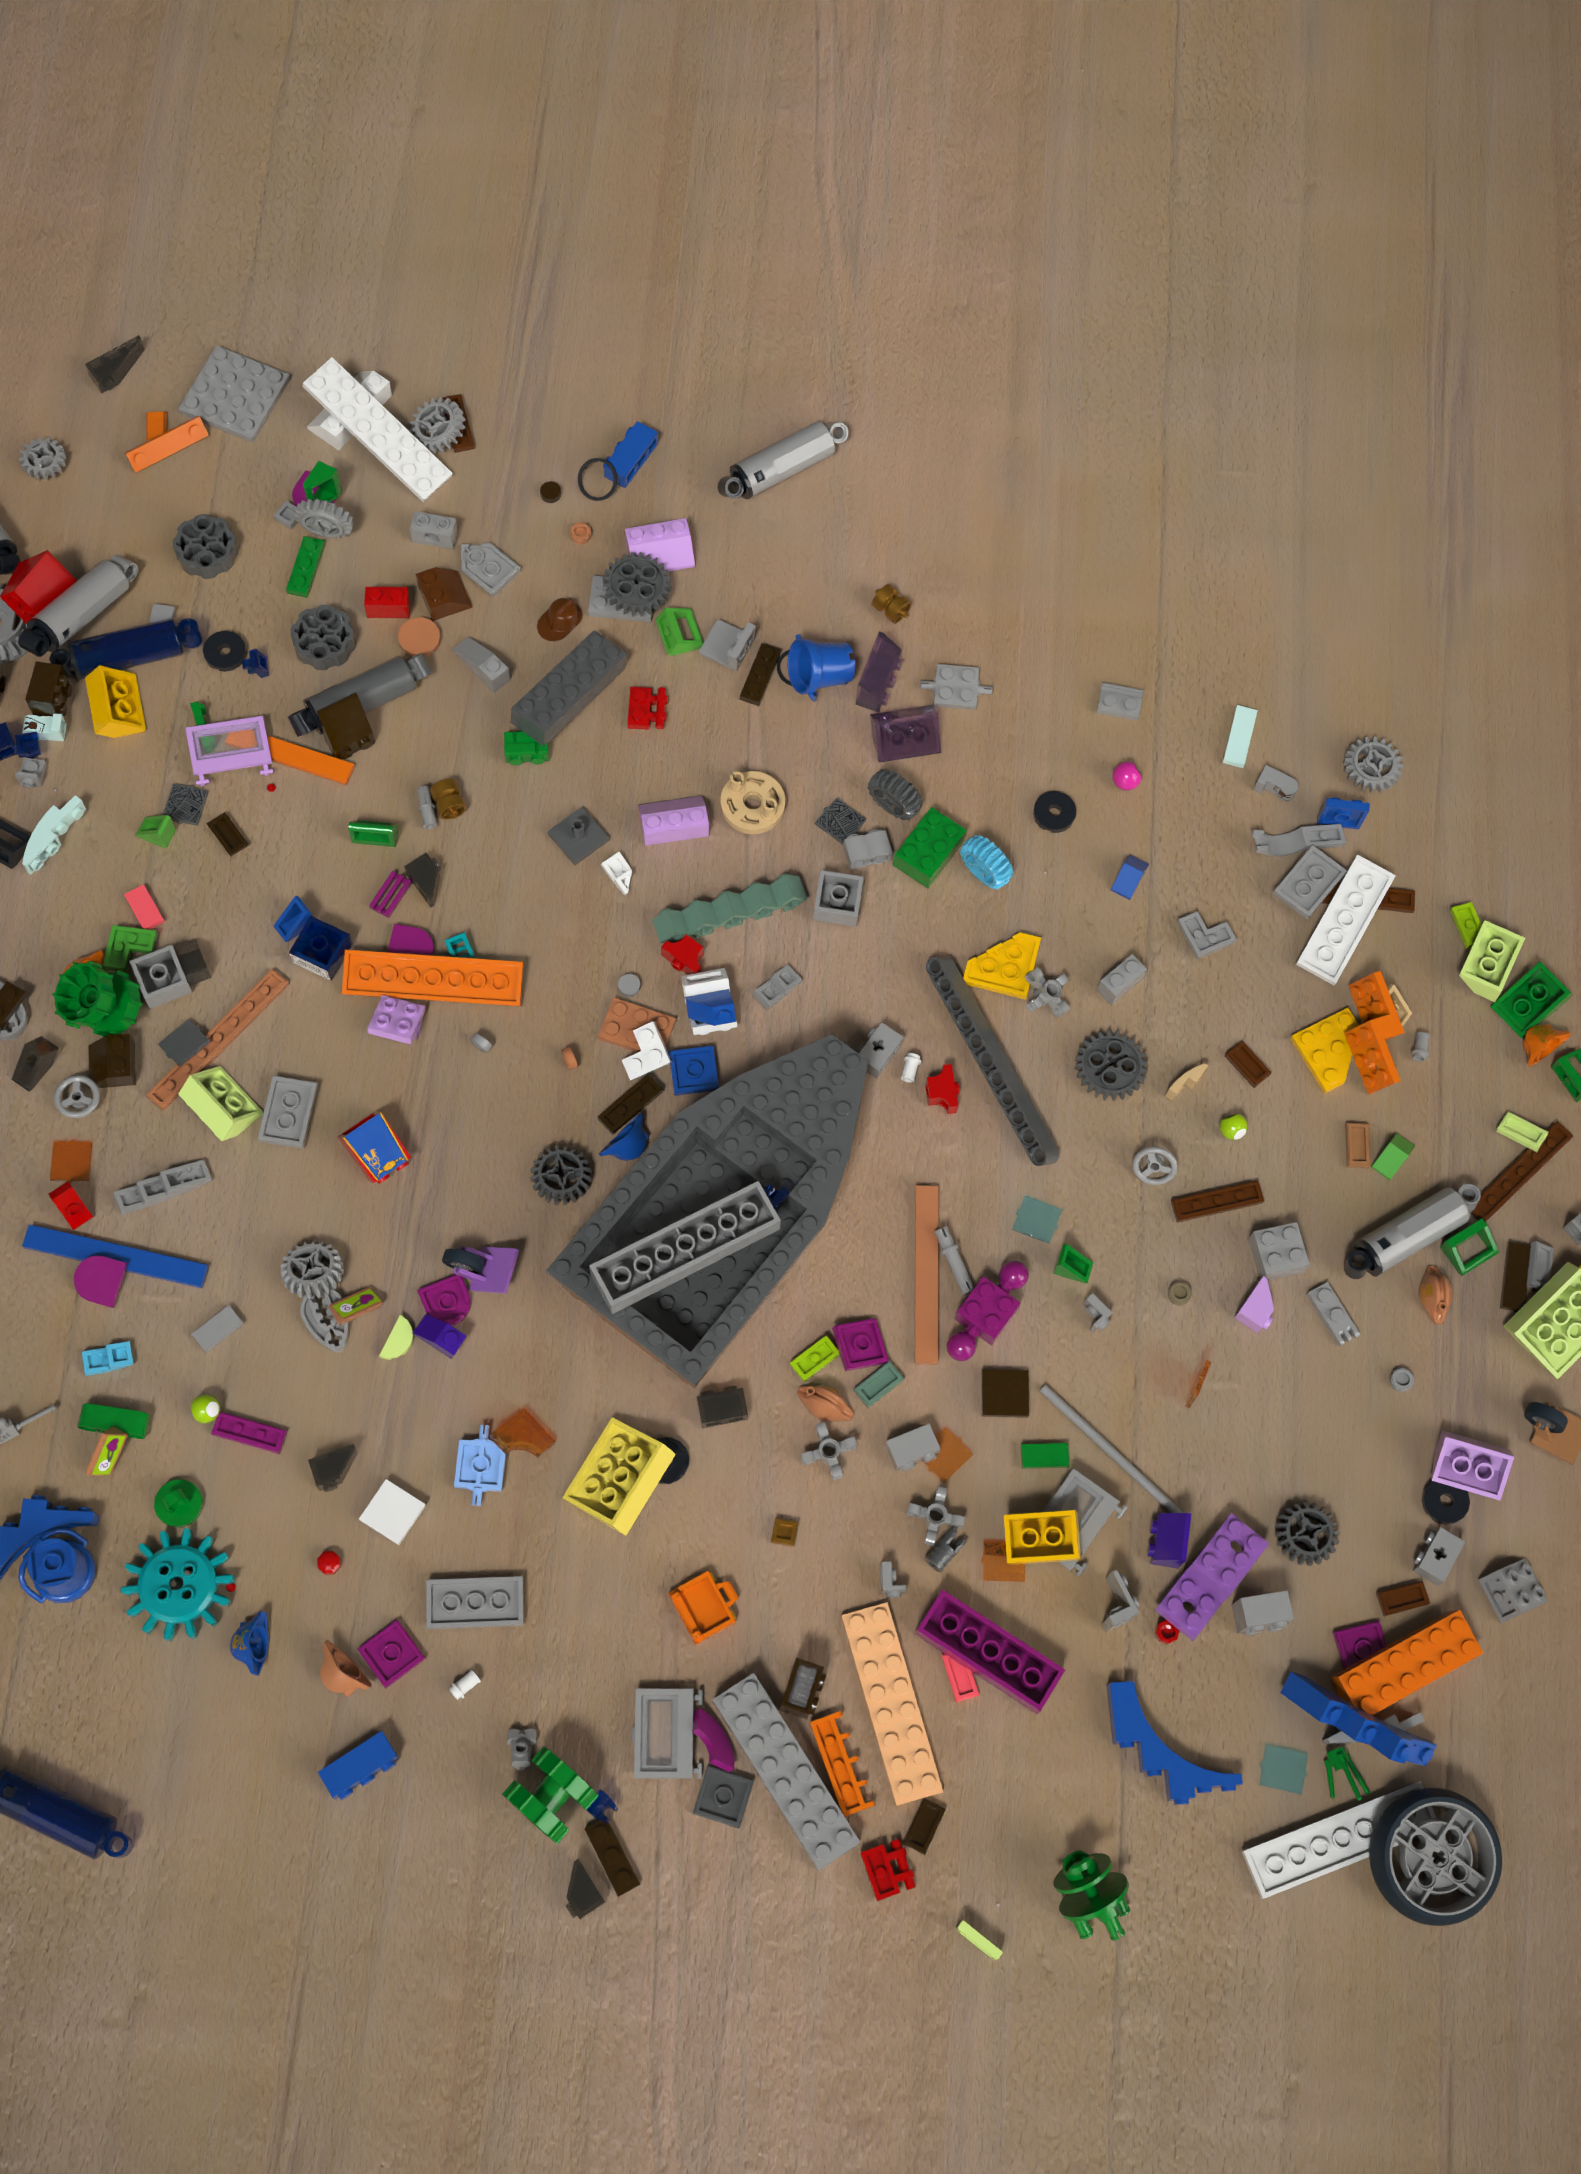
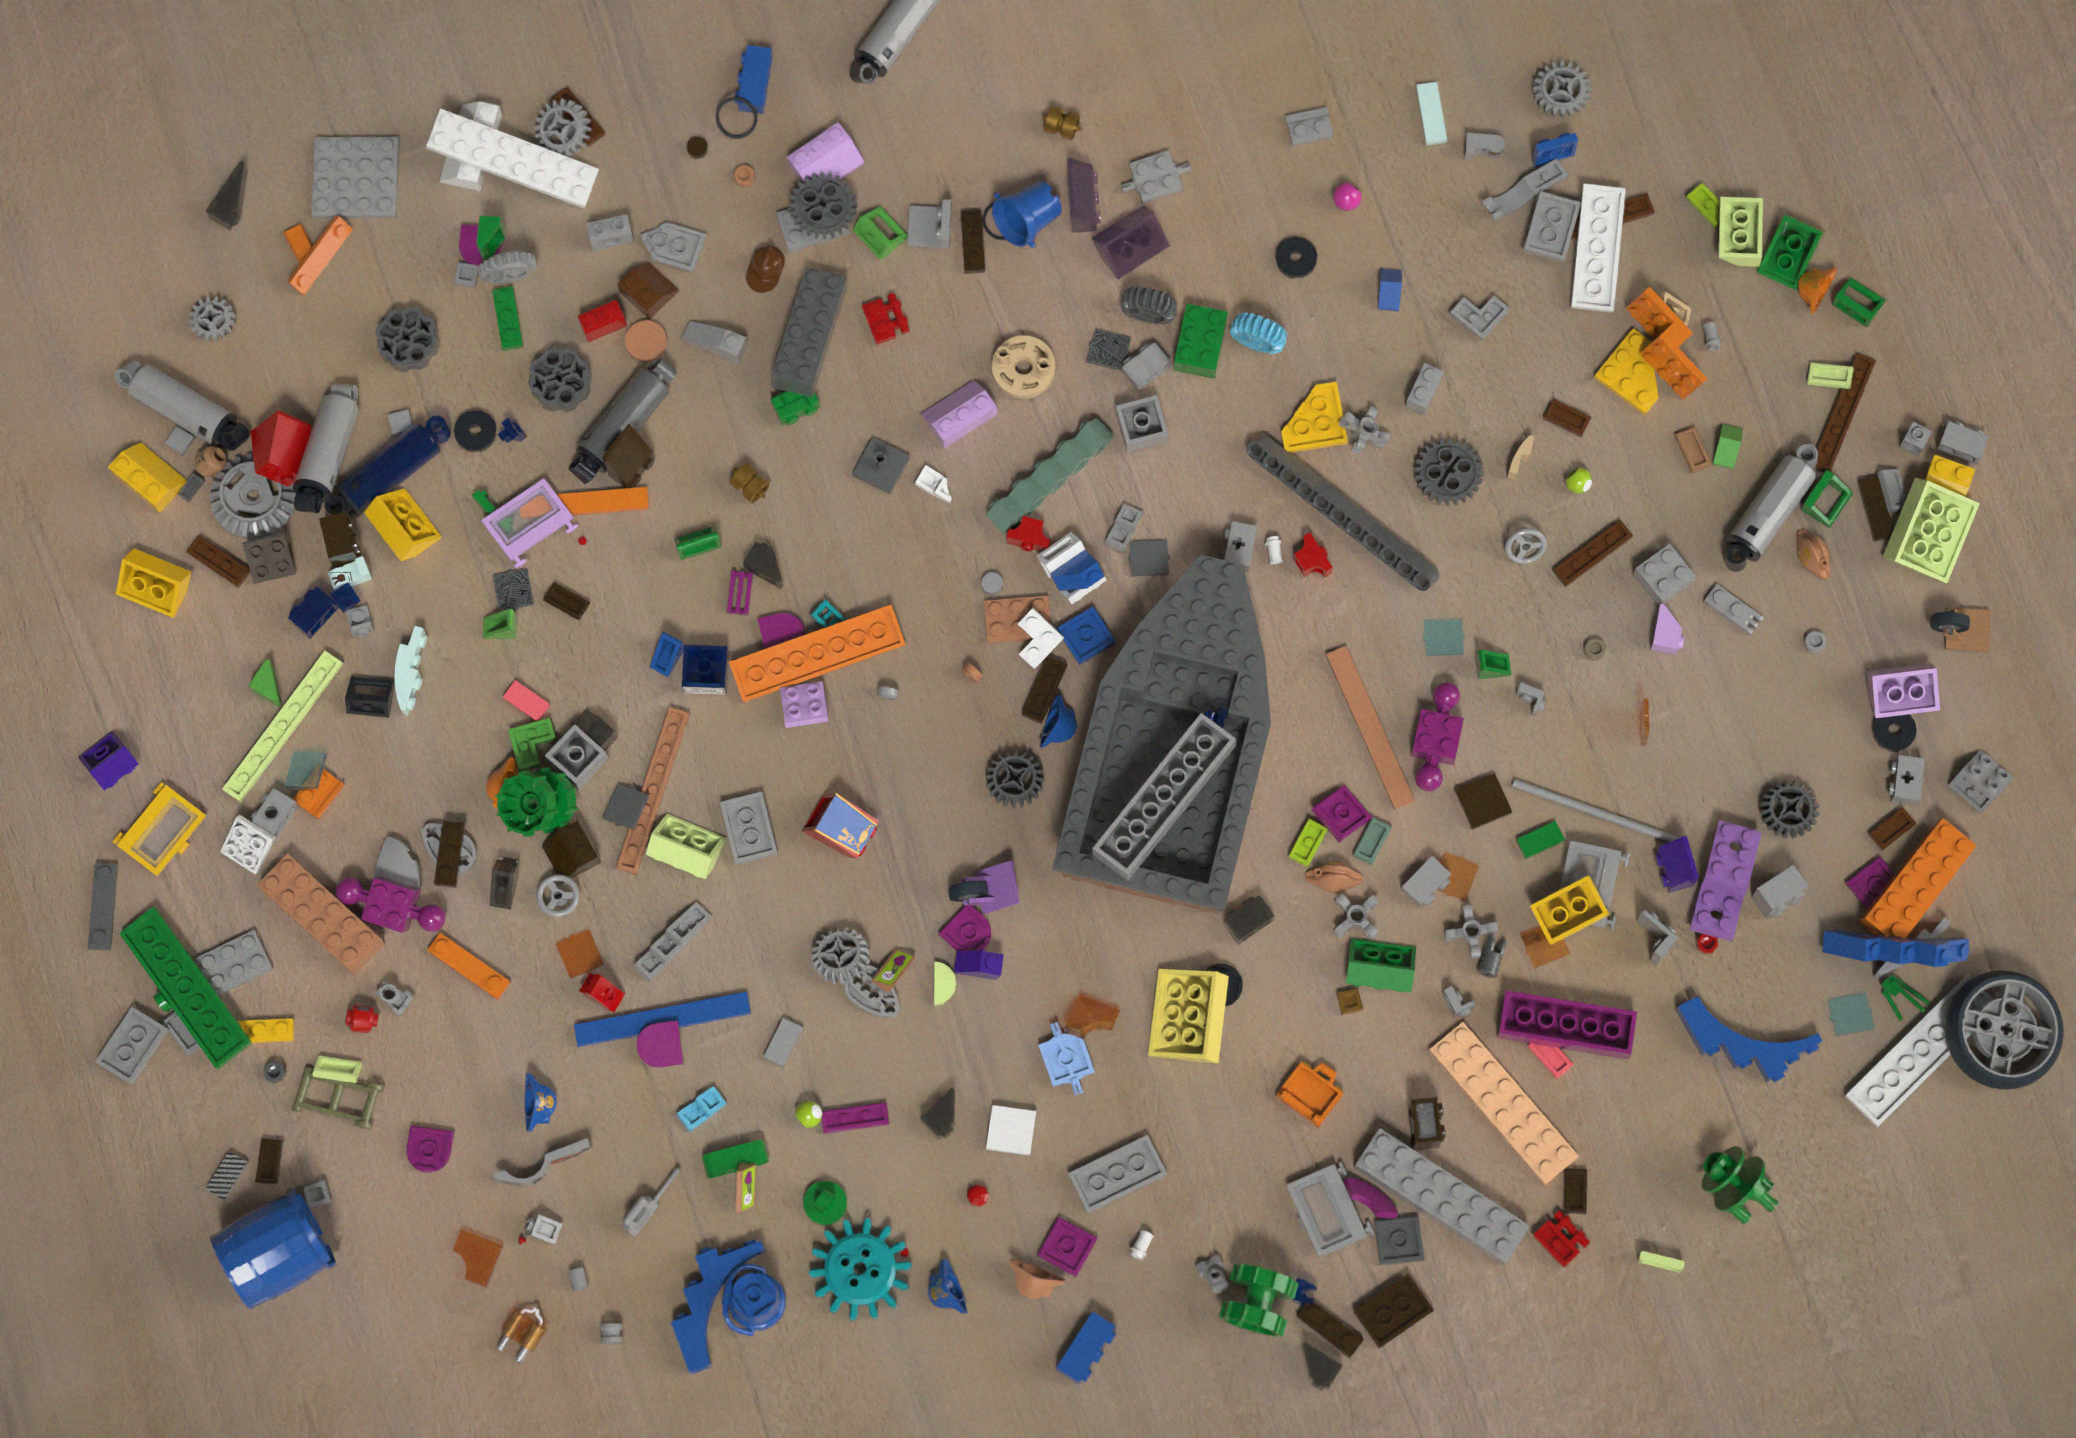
camera: 15 degrees left, 5 degrees up
(426, 807) = (733, 499): light grey axle -> none
(683, 1868) = (1393, 1311): none -> dark brown plate
(788, 1025) = (1149, 558): none -> dark grey piece
(831, 1509) = (1381, 965): none -> green slope
(839, 1765) = (1483, 1172): orange hinge -> none
(954, 1260) = (1386, 702): light grey pin -> none

